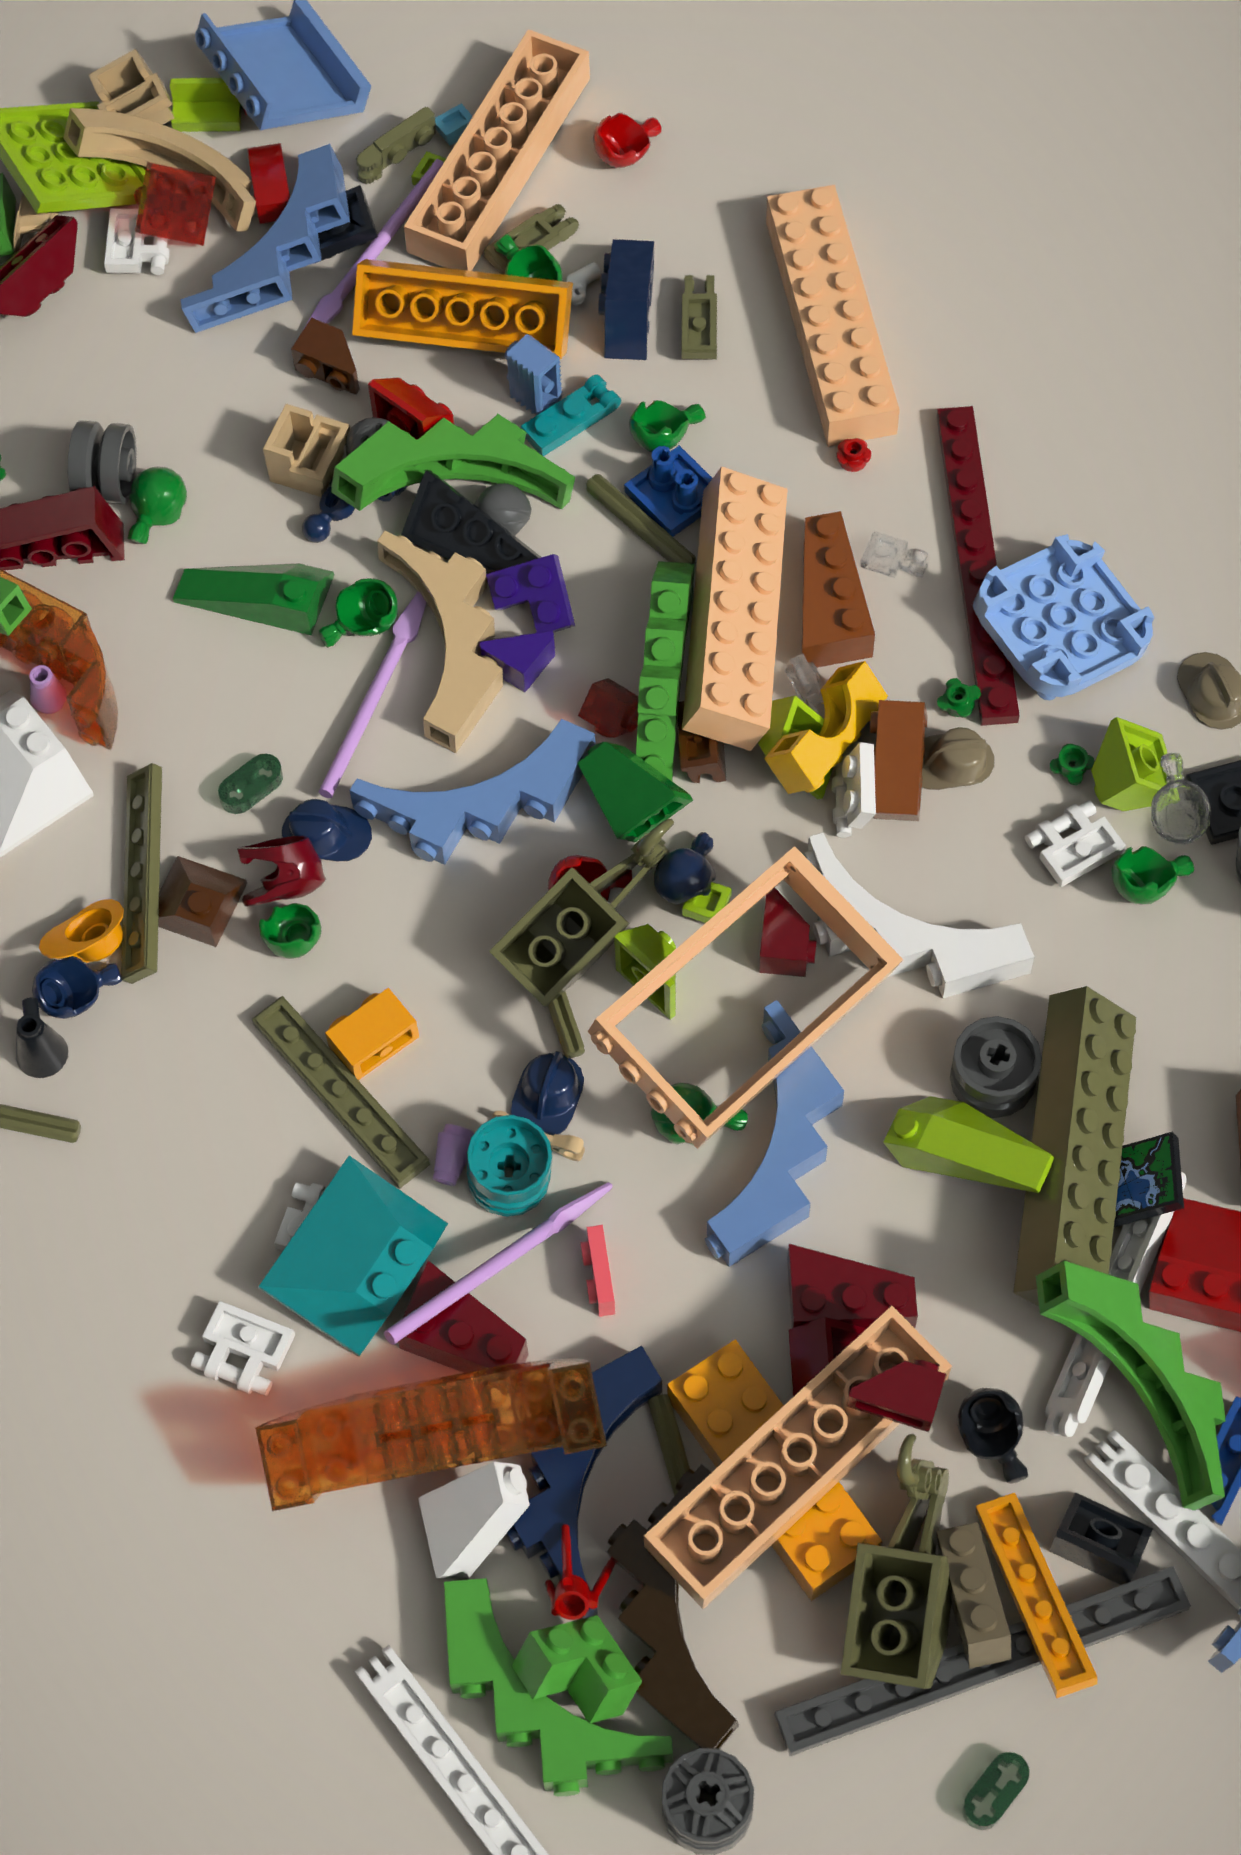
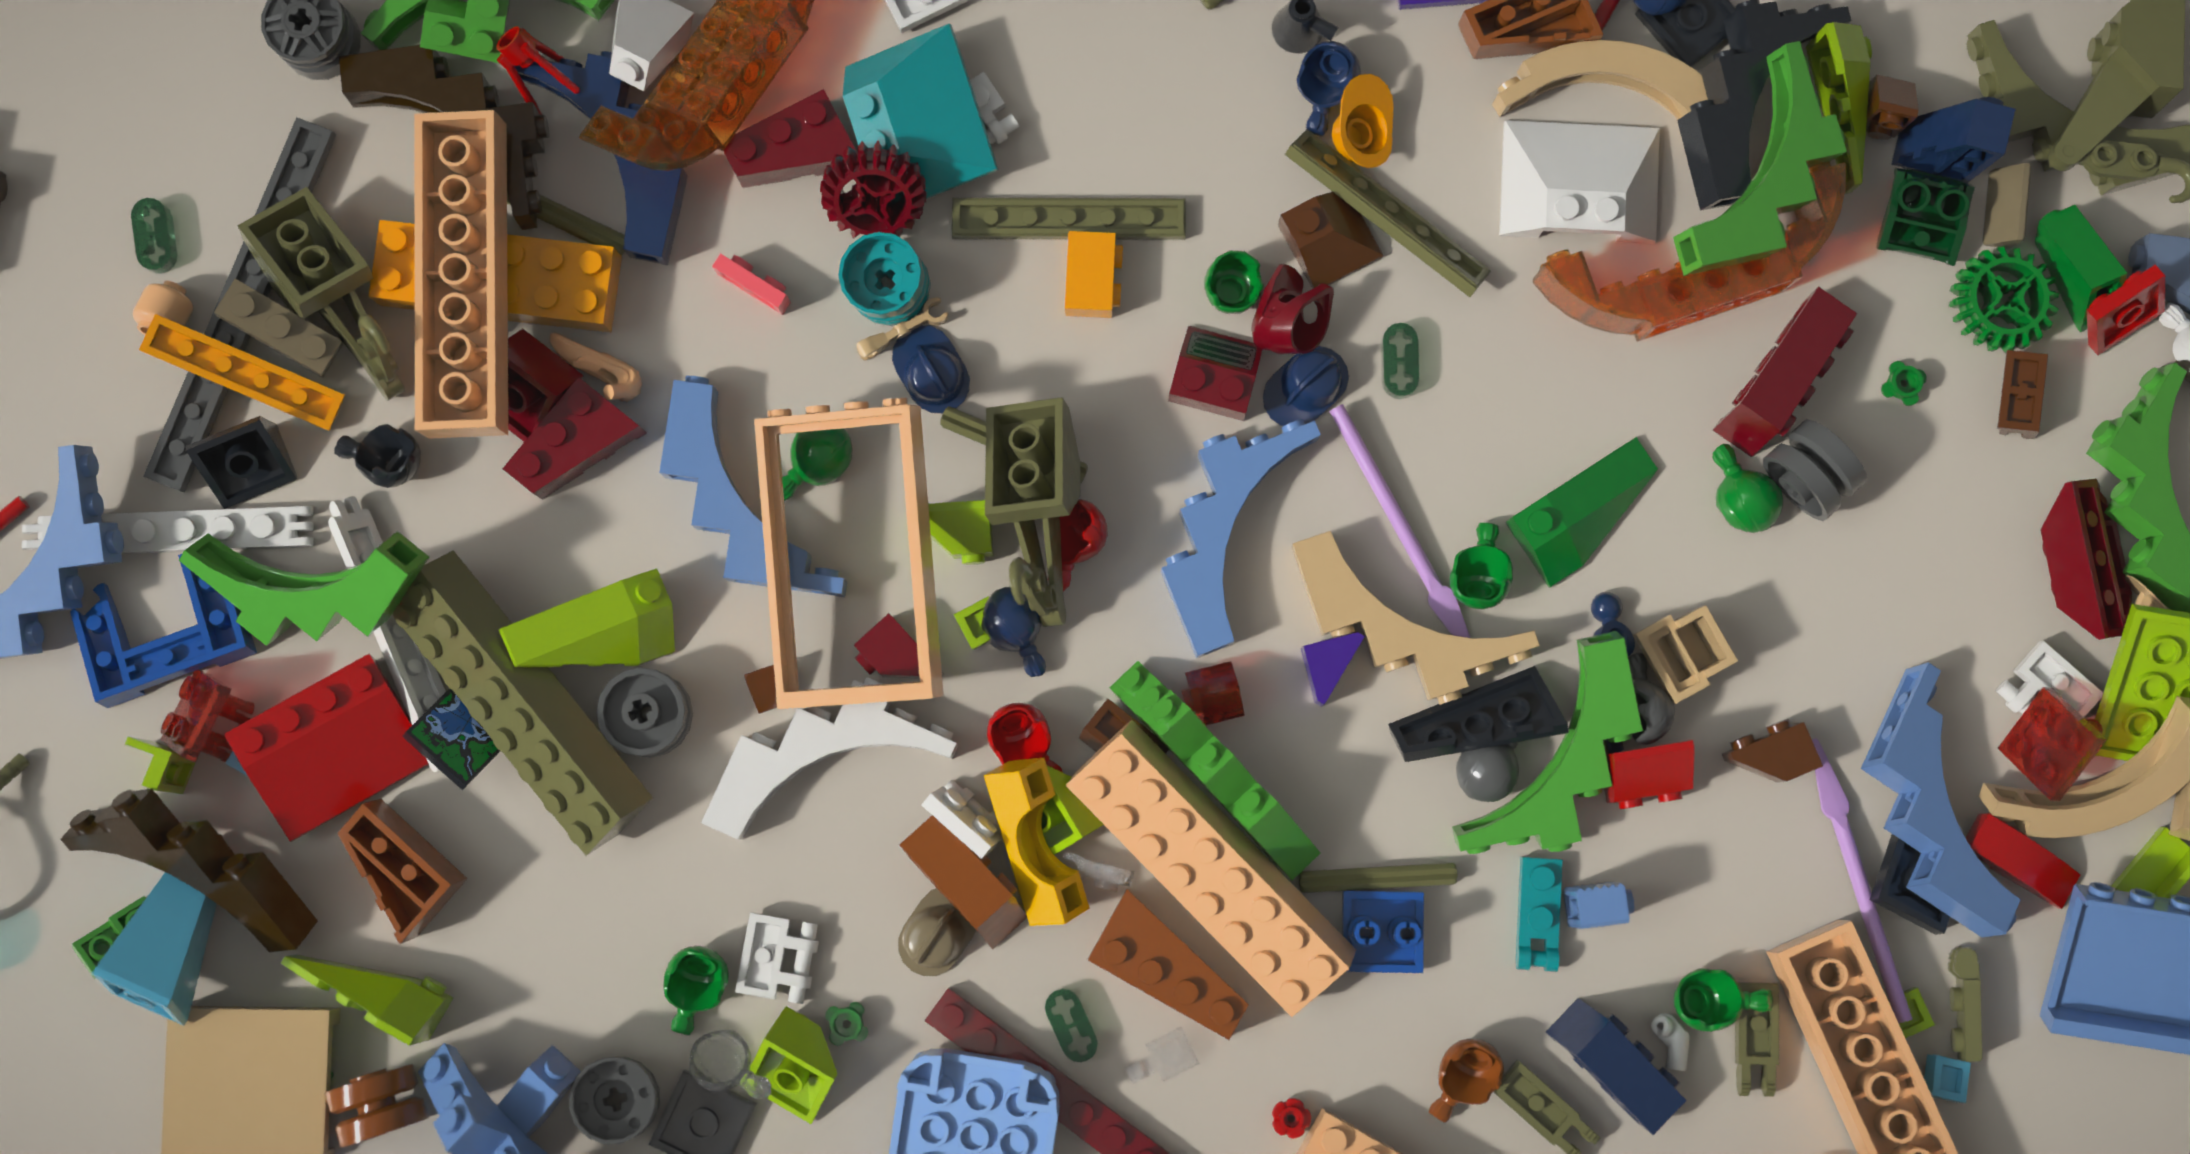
camera: 130 degrees right, 20 degrees up
(46, 690) = (1618, 269): lavender cone -> none
(371, 891) = (1215, 373): none -> dark red slope
(446, 1225) = (878, 179): none -> dark red gear
(451, 1153) = (941, 257): lavender cone -> none
(459, 307) = (1719, 901): light orange brick -> none
(539, 584) = (1381, 734): dark purple plate -> none
(556, 1223) = (812, 192): lavender piece -> none
(630, 790) = (1123, 641): green slope -> none
(662, 424) = (1455, 976): green hair -> none
(721, 371) = (1467, 1076): none -> dark orange hair
(762, 804) = (1020, 733): none -> red hair
(763, 1308) = (621, 379): none -> light nougat piece
(890, 1007) = (762, 688): none -> reddish brown slope
(901, 1394) = (418, 366): dark red slope -> none
(934, 629) = (1080, 1020): none -> clear green beam
(961, 707) = (977, 997): green plate -> none
(1047, 1718) = (164, 300): none -> light nougat head

